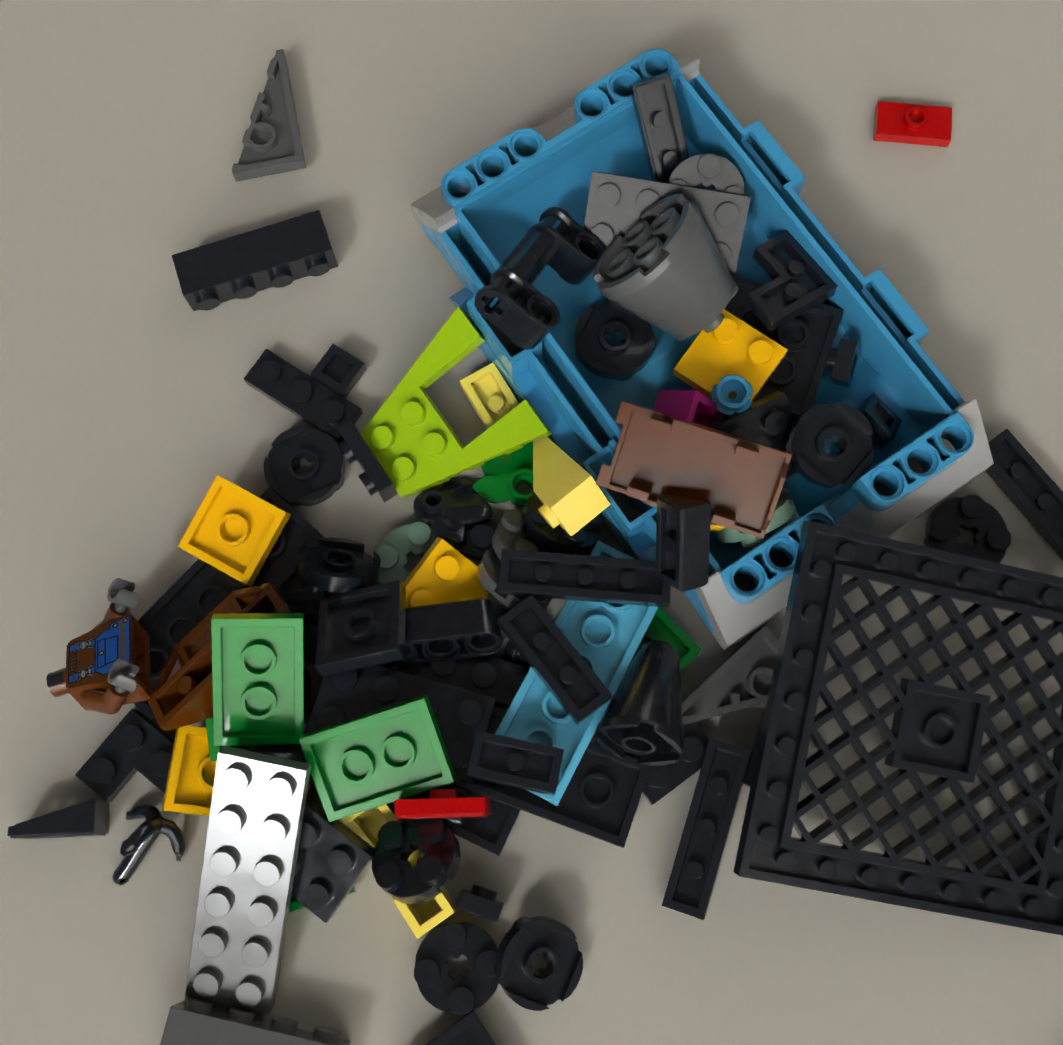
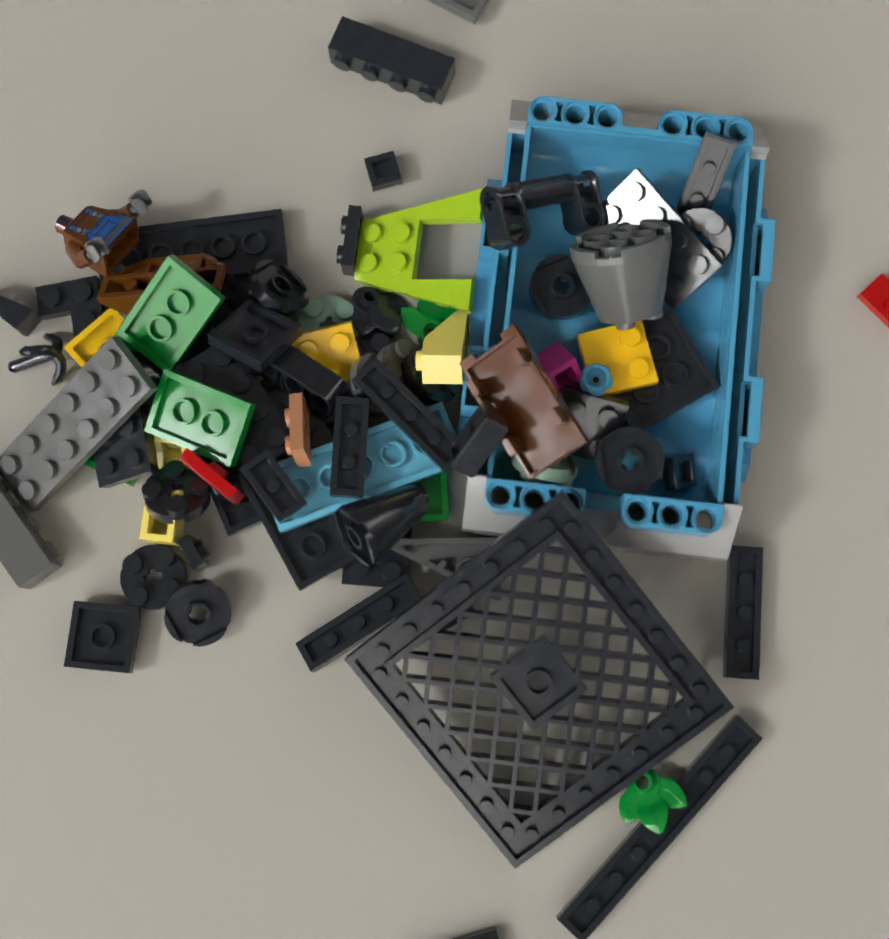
camera: 40 degrees right, 5 degrees up
(234, 530) = (237, 217): yellow plate -> none
(284, 458) = (305, 198): black plate -> none
(301, 394) = (350, 167): black plate -> none
(489, 394) = (460, 259): light yellow plate -> none
(500, 697) = (298, 420): none -> nougat plate
(795, 284) = (703, 345): black plate -> none
(843, 362) = (691, 419): black plate -> none
(971, 514) = (690, 578): black plate -> none

